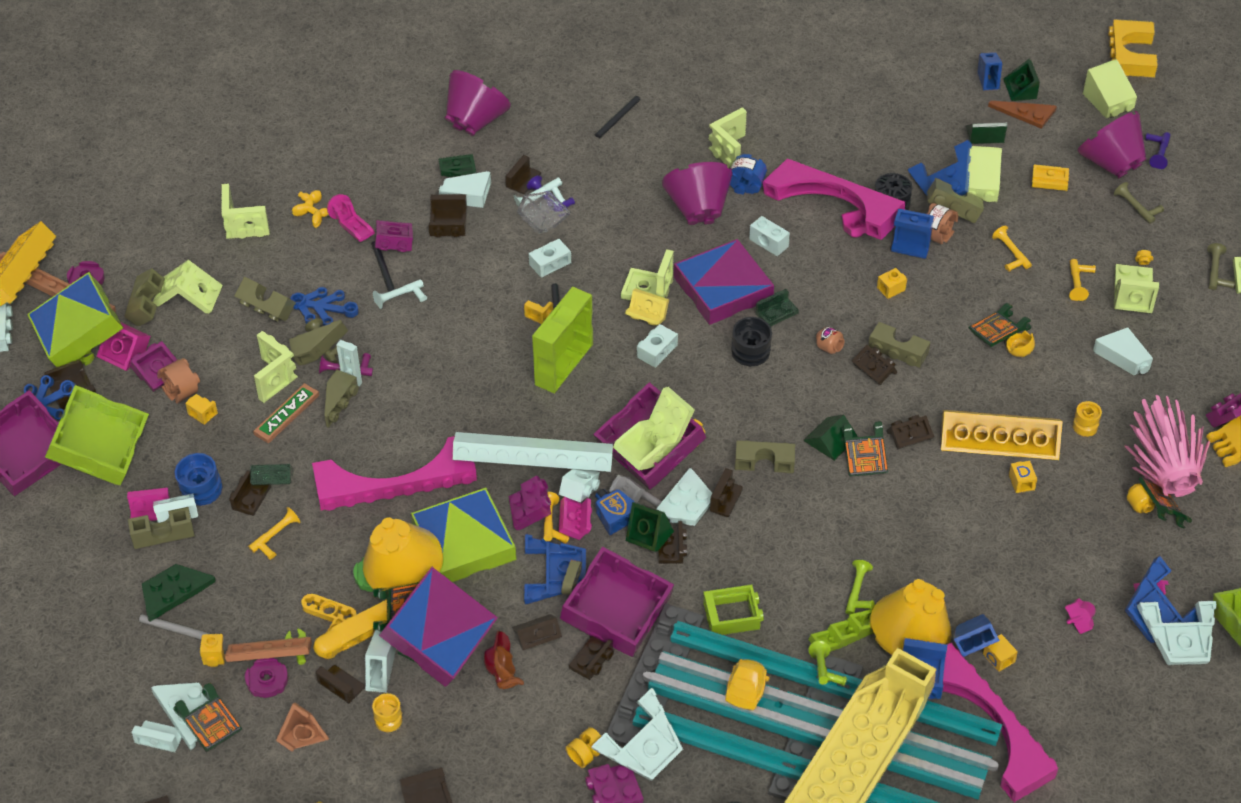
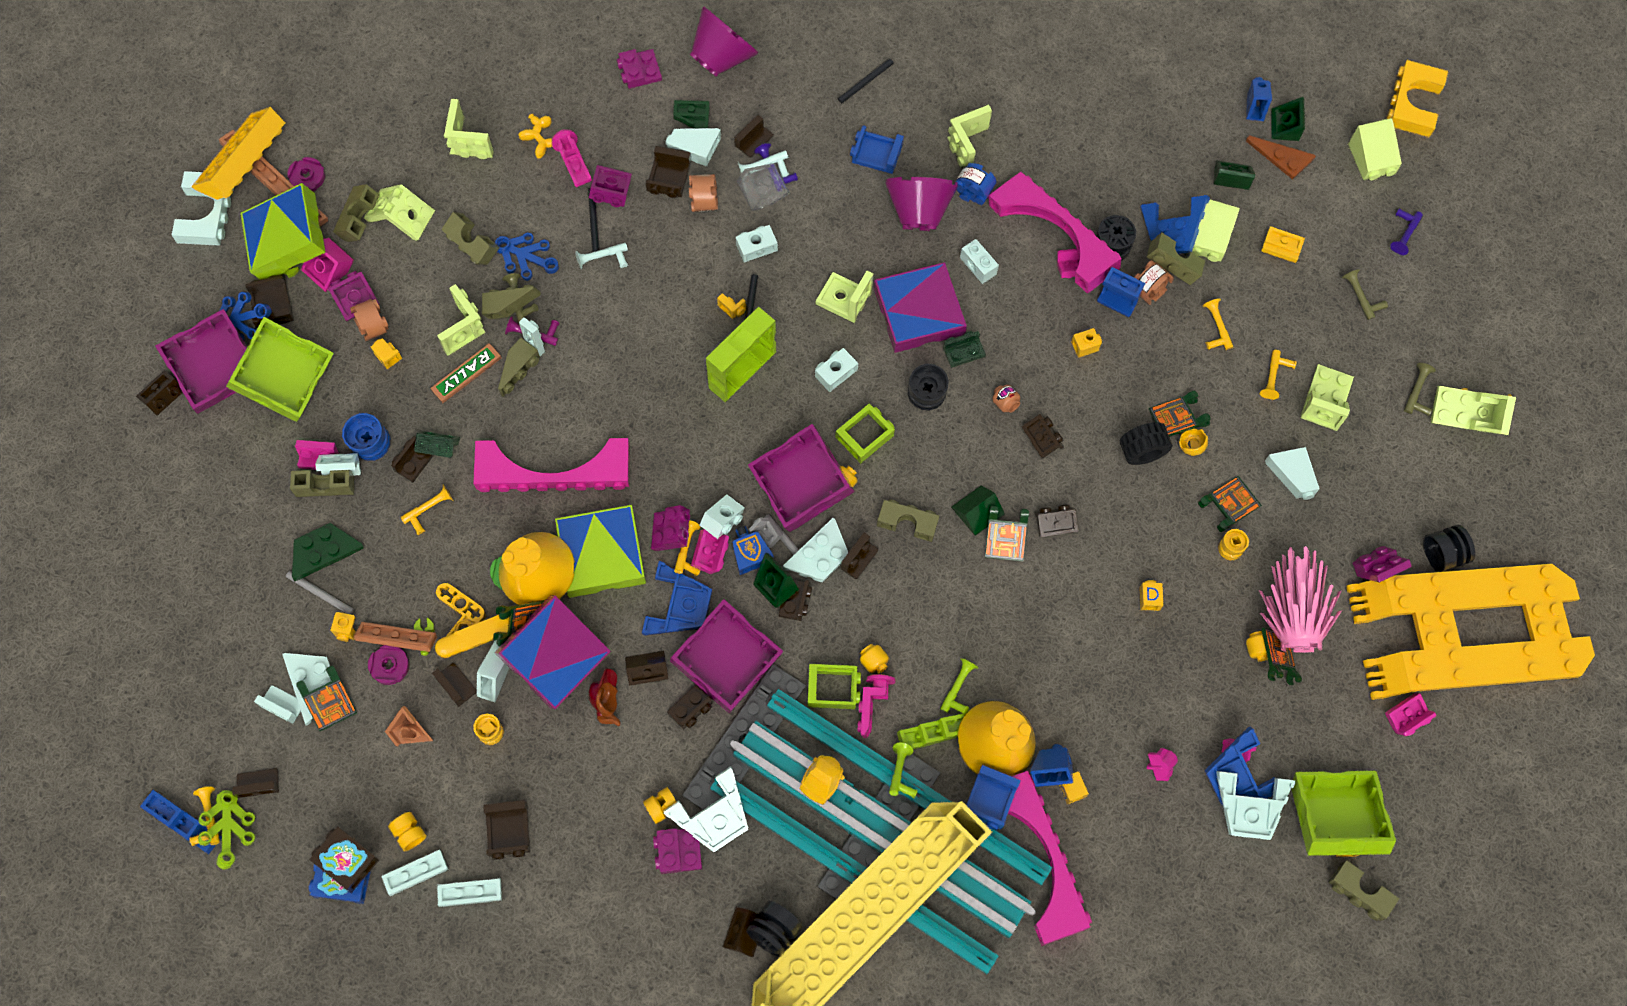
camera: 10 degrees right, 20 degrees up
(396, 140) = (638, 68): none -> magenta plate
(487, 223) = (703, 192): none -> nougat brick
(532, 451) = (684, 475): light aqua brick -> none
(571, 577) = (689, 622): olive beam -> none
(644, 168) = (876, 151): none -> blue panel
(647, 307) = (837, 324): light yellow bracket -> none
(655, 438) = (804, 484): yellowish green bracket -> none
(703, 409) = (852, 446): none -> lime window
(766, 579) = (874, 659): none -> yellow head
(776, 605) = (878, 691): none -> dark pink piece
(911, 352) = (1083, 429): olive arch -> none
(976, 349) = (1145, 443): none -> black tyre
(1001, 434) = (1144, 542): yellow slope -> none
(1074, 387) = (1233, 501): none -> flag
(1117, 146) = (1361, 227): magenta cone -> none
(1143, 257) = (1349, 362): yellow plate -> none

